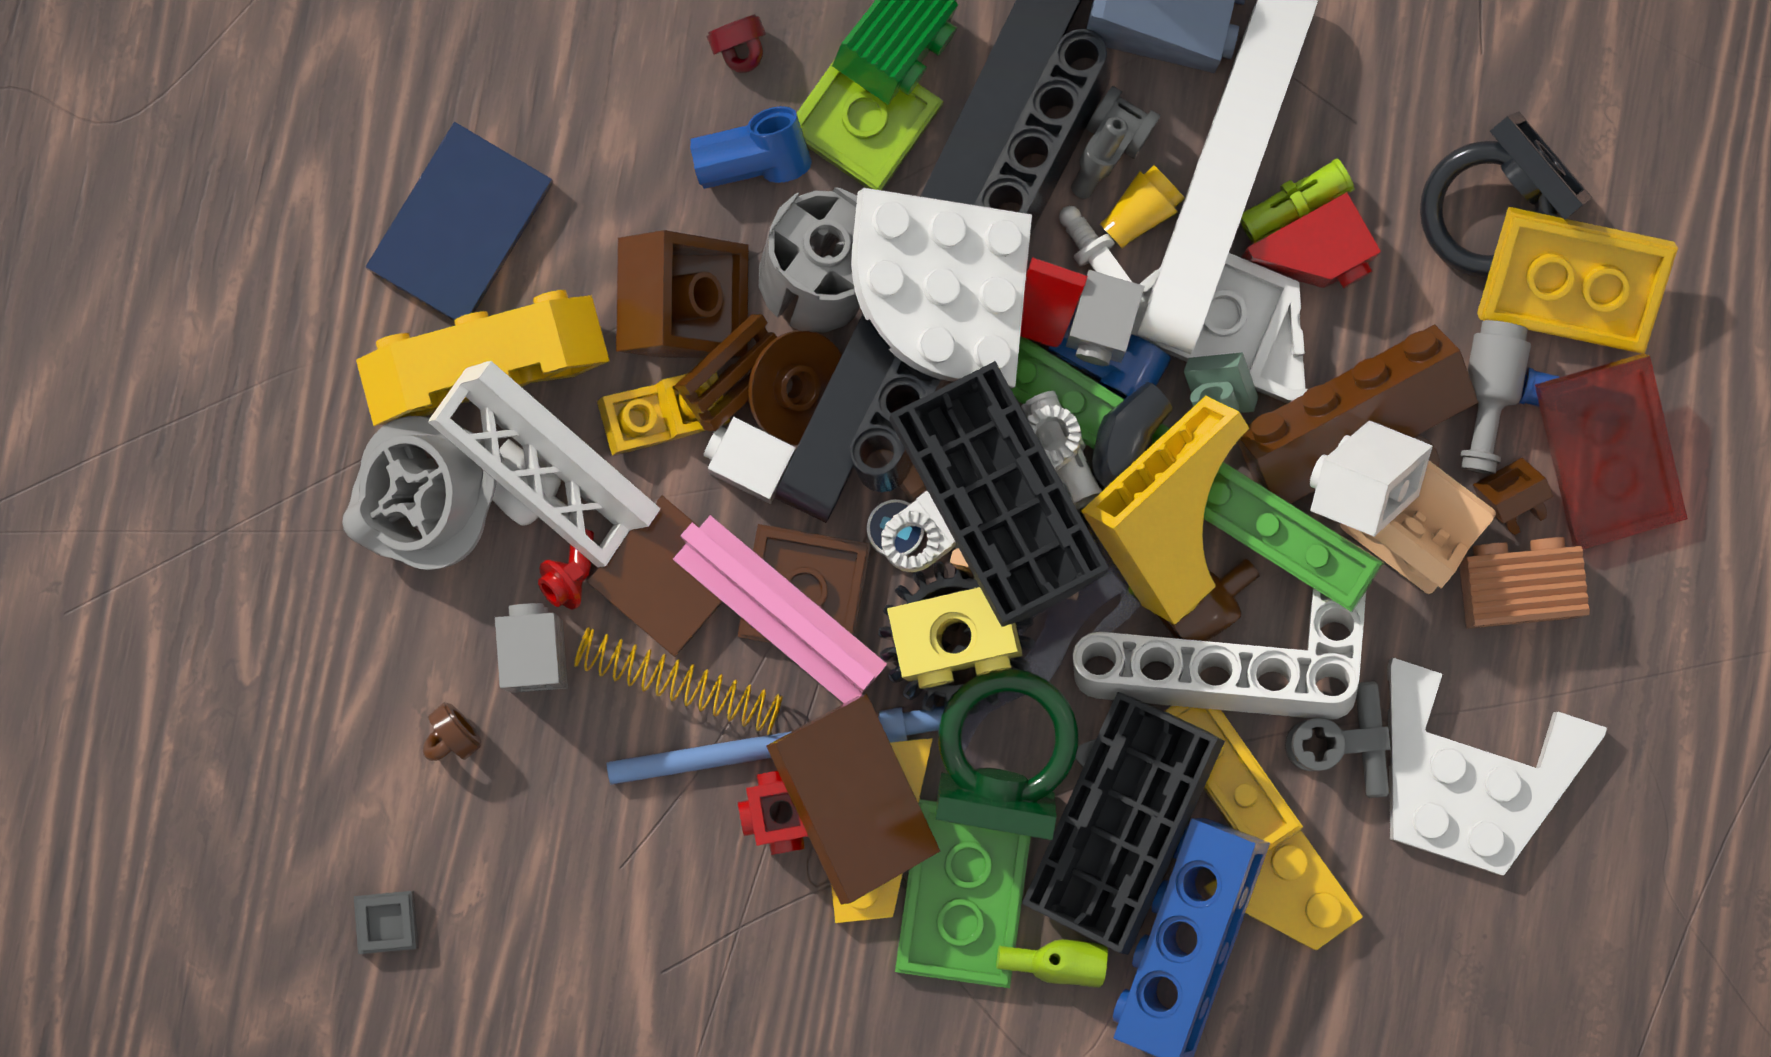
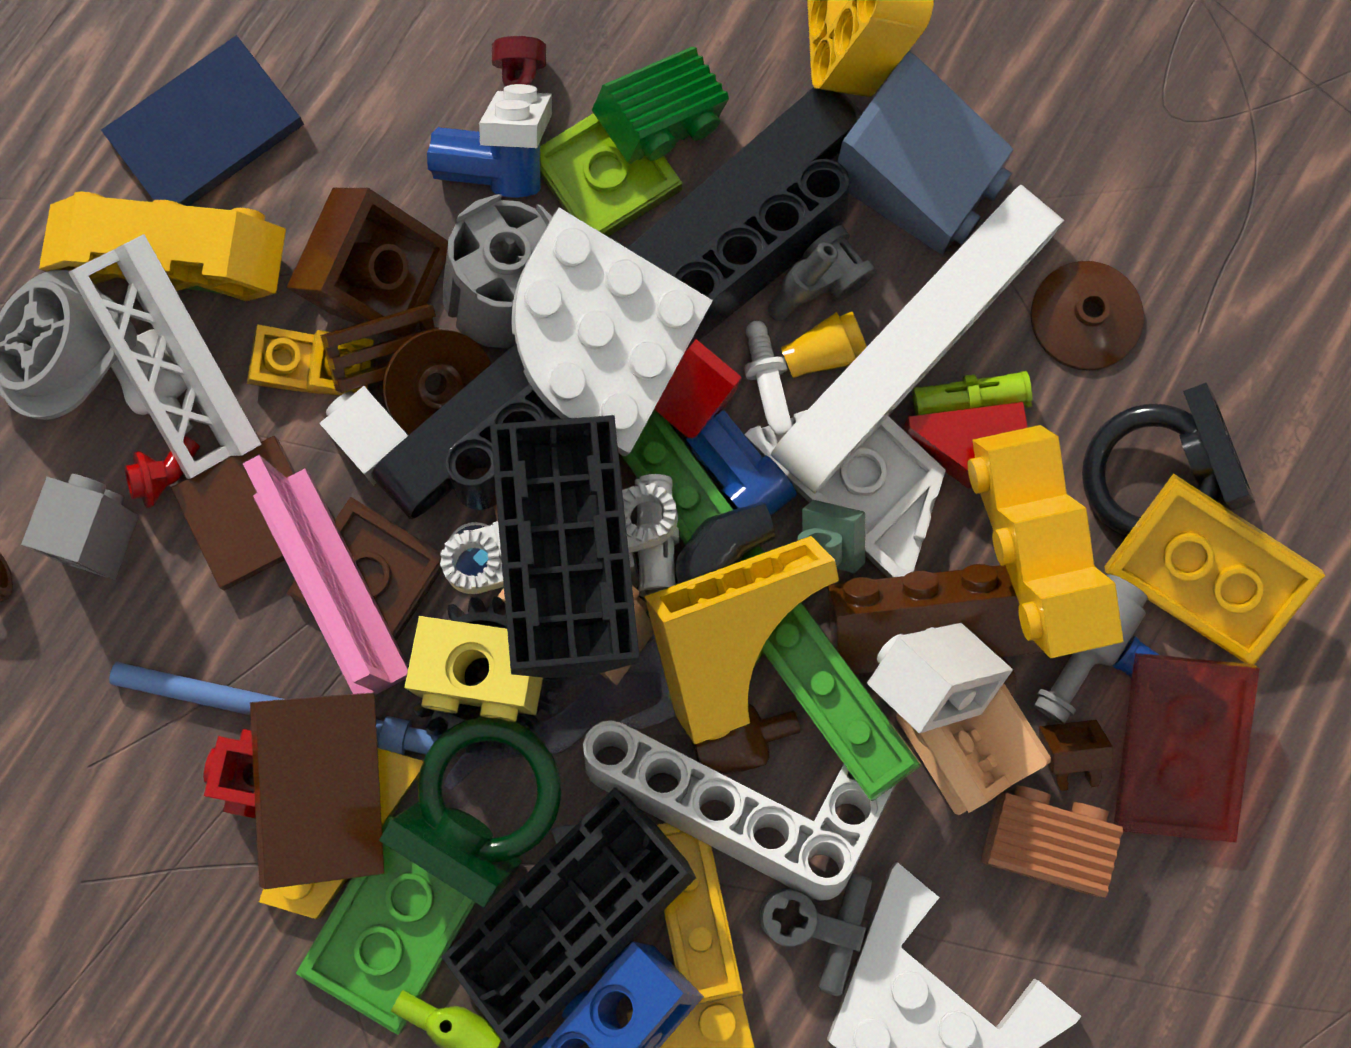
camera: 30 degrees right, 5 degrees down
(588, 635) = (154, 536): yellow piece -> none
(766, 103) = (516, 117): none -> white plate
(1104, 318) = (744, 426): light grey brick -> none
(1355, 100) = (1071, 334): none -> reddish brown dish
(1415, 319) = (1044, 542): none -> yellow brick

